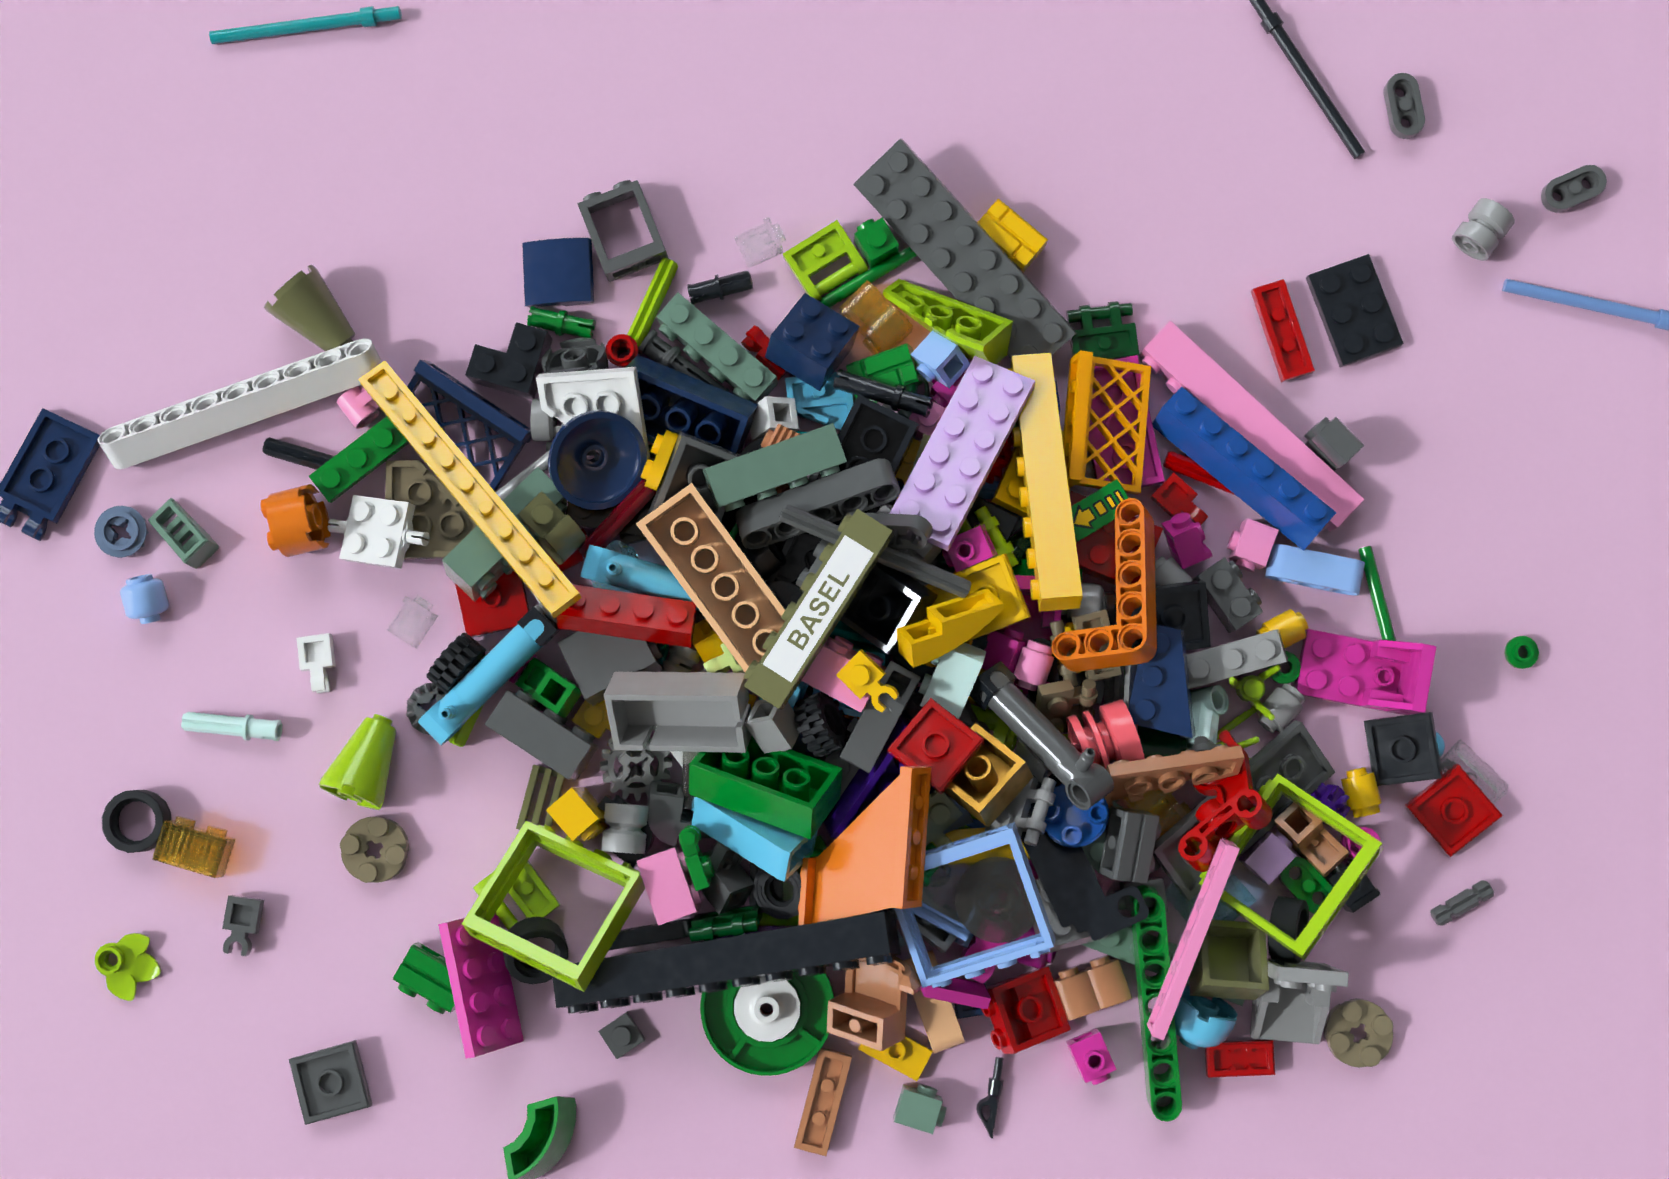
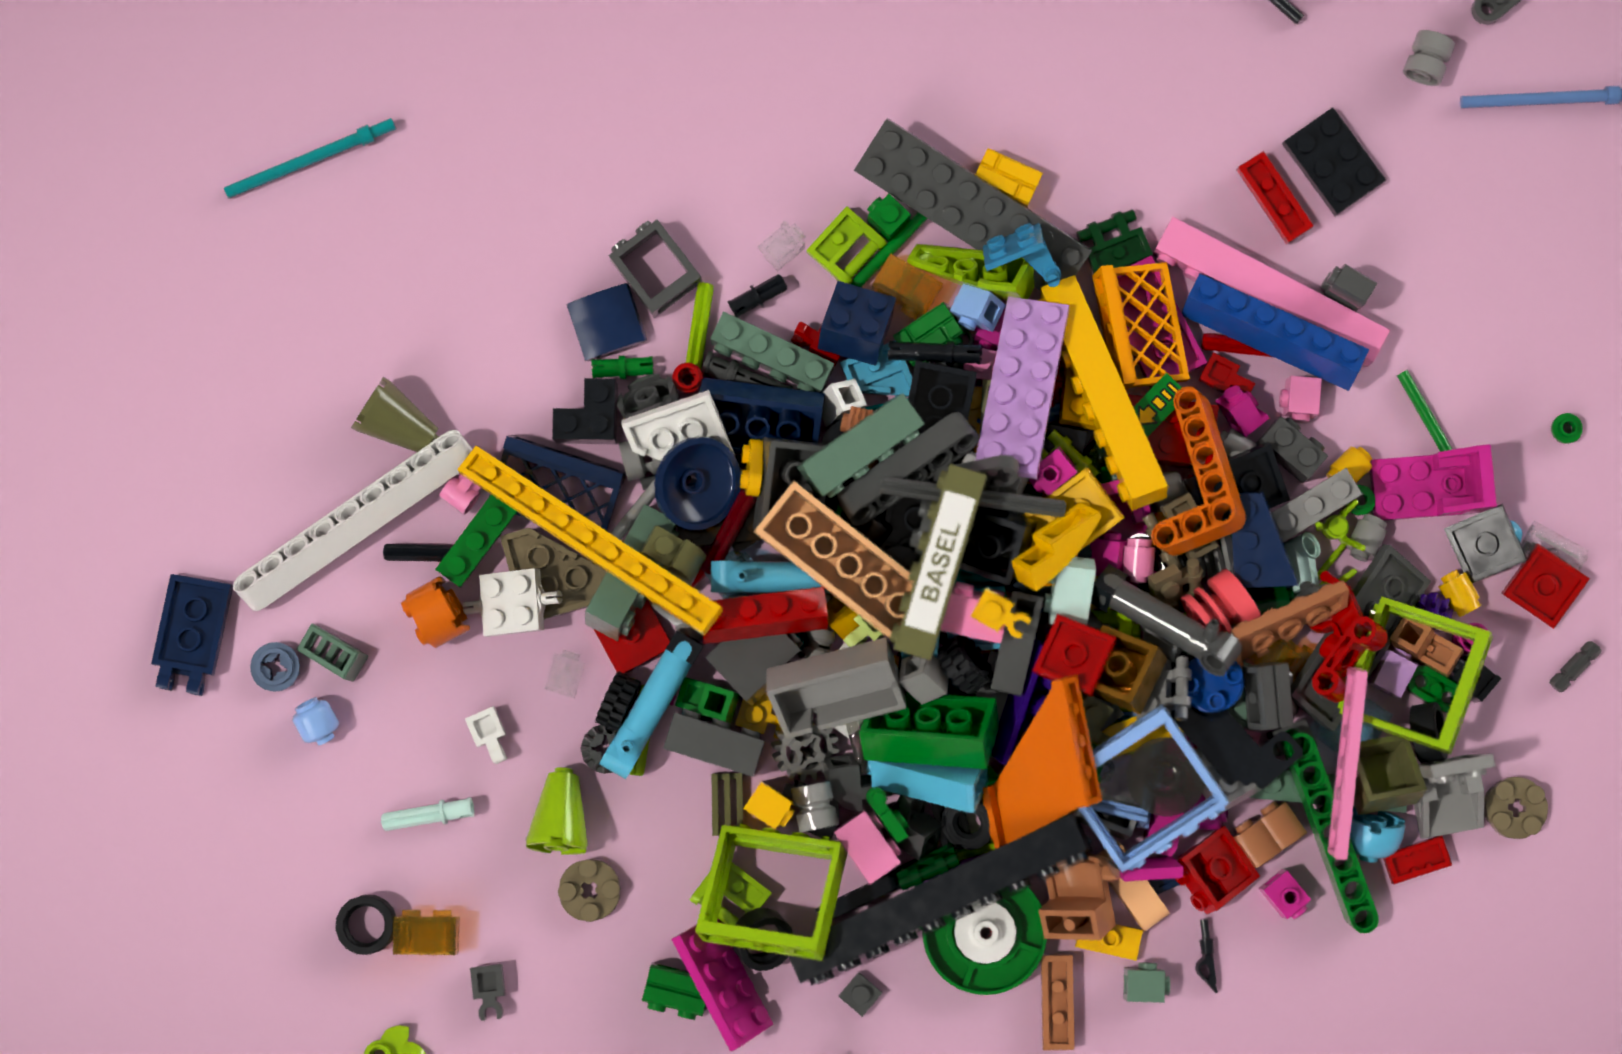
camera: 20 degrees left, 0 degrees up
(1012, 309) = (1024, 243): none -> dark azure plate
(1315, 569) = (1363, 405): light blue beam -> none

